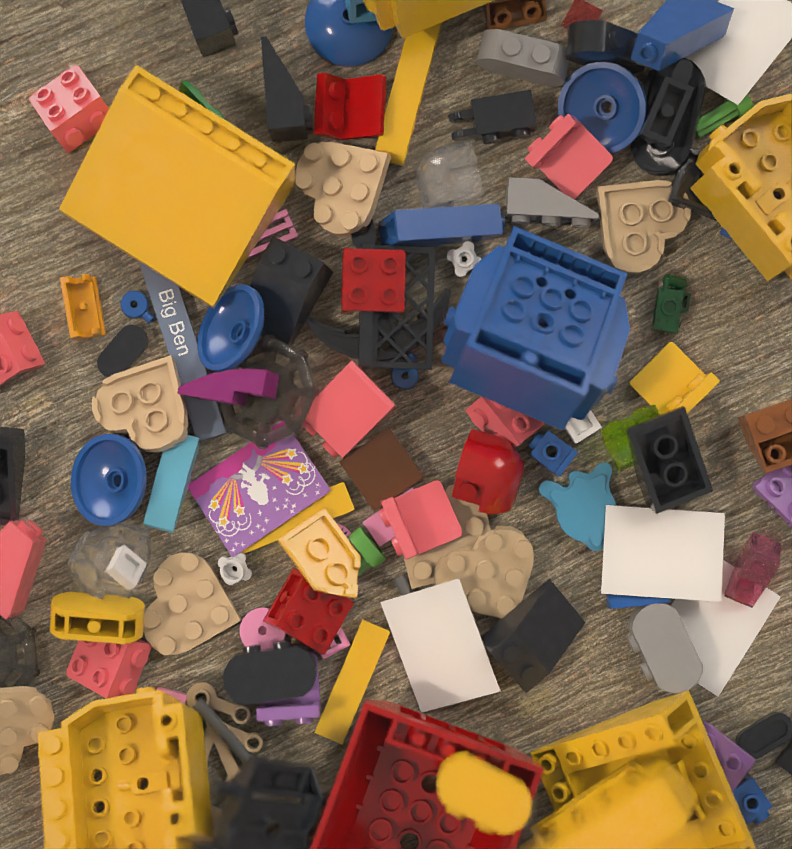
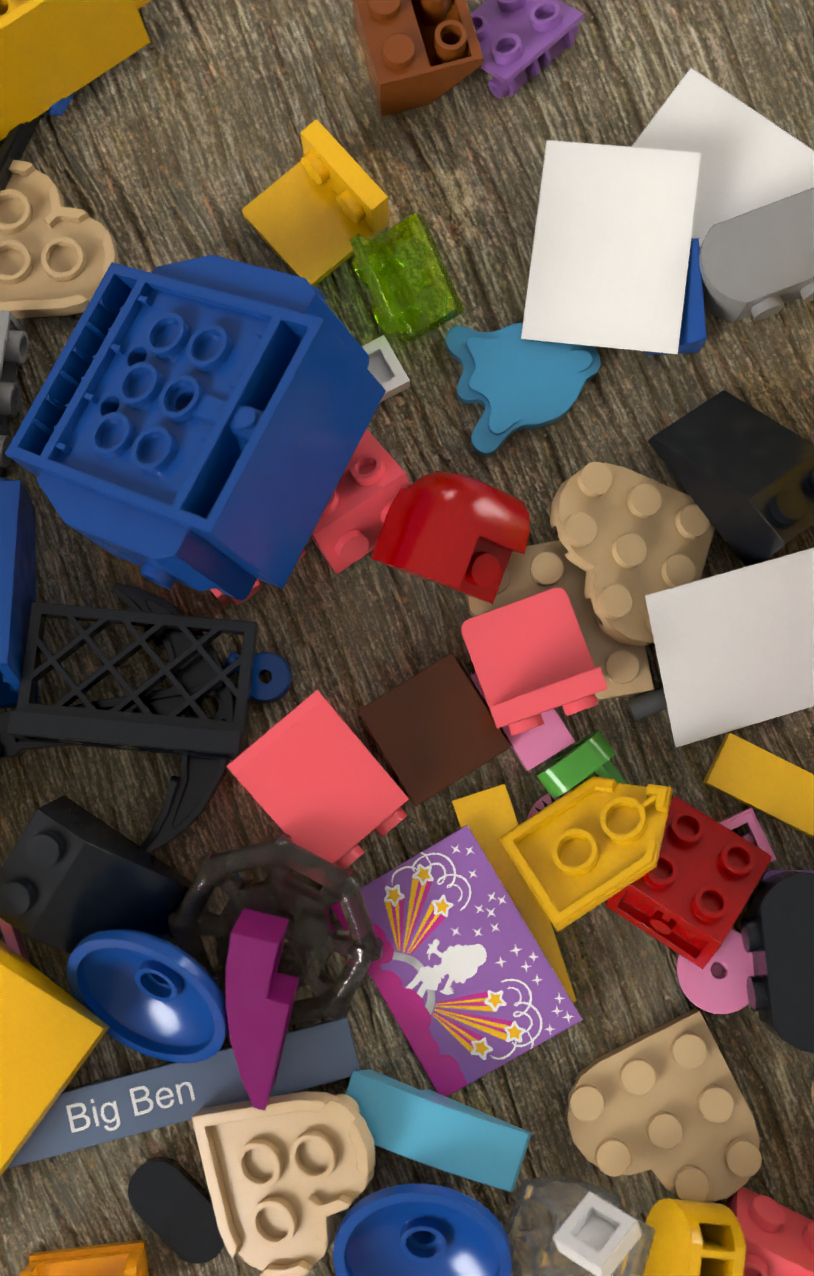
camera: 85 degrees left, 5 degrees down
(141, 309) = (102, 1169): blue piece -> none
(226, 568) = (612, 1027): white plate -> none
(372, 280) = (80, 719): red bracket -> none
(455, 256) = (58, 572): white plate -> none
(555, 464) = (422, 446): blue brick -> none
(668, 460) = (453, 217): black slope -> none
(669, 304) = (179, 210): dark green piece -> none
(753, 569) = (645, 97): clear pink slope -> none

